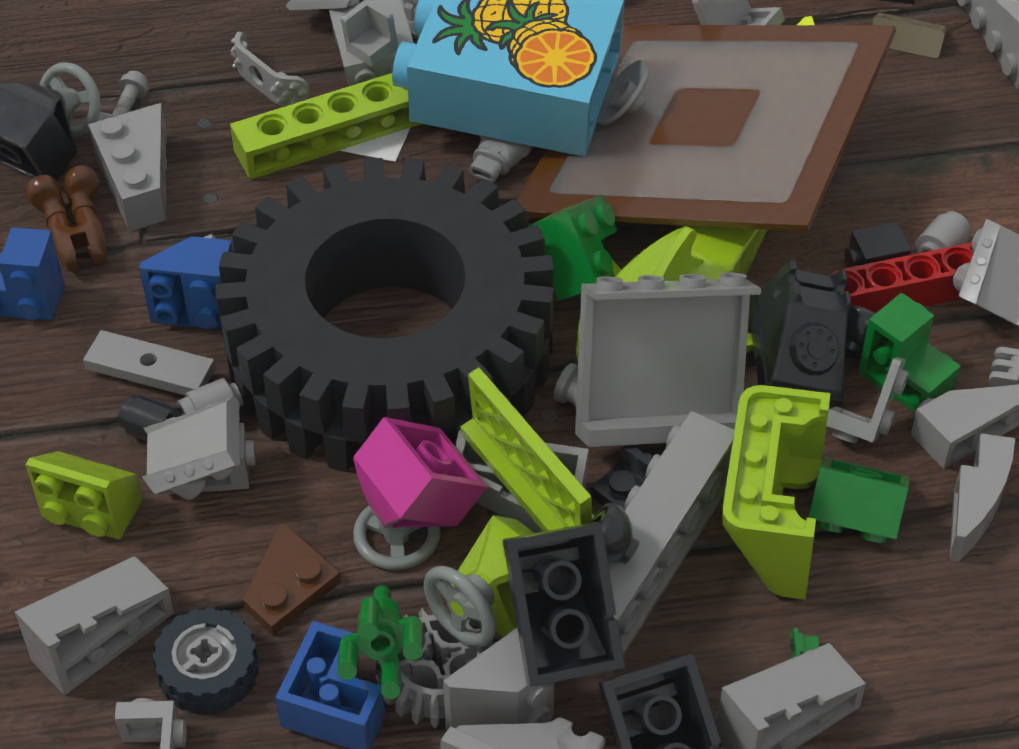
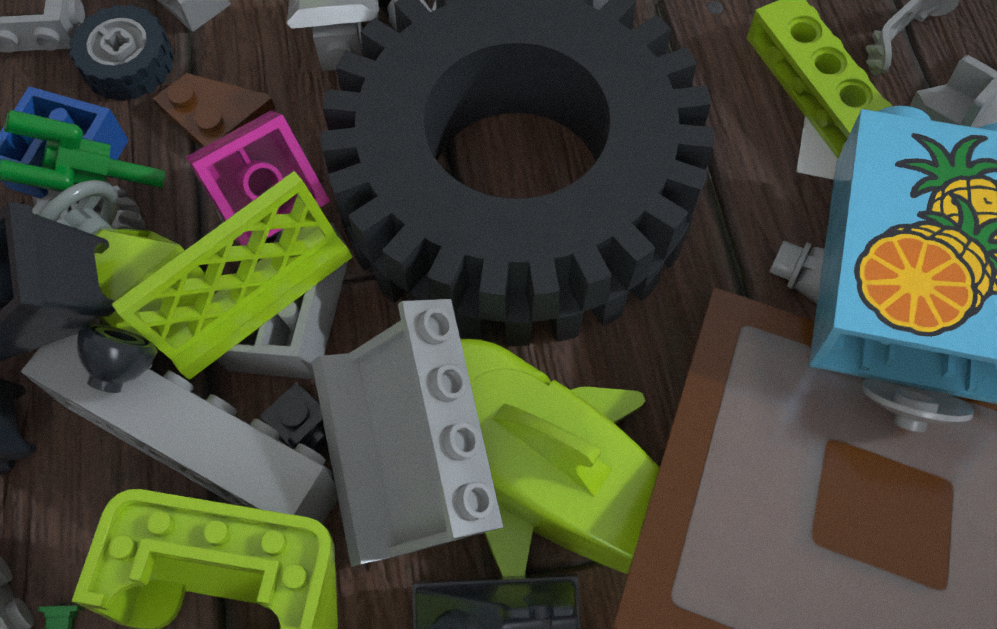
camera: 90 degrees right, 15 degrees up
(576, 245) = (631, 333): green brick -> none

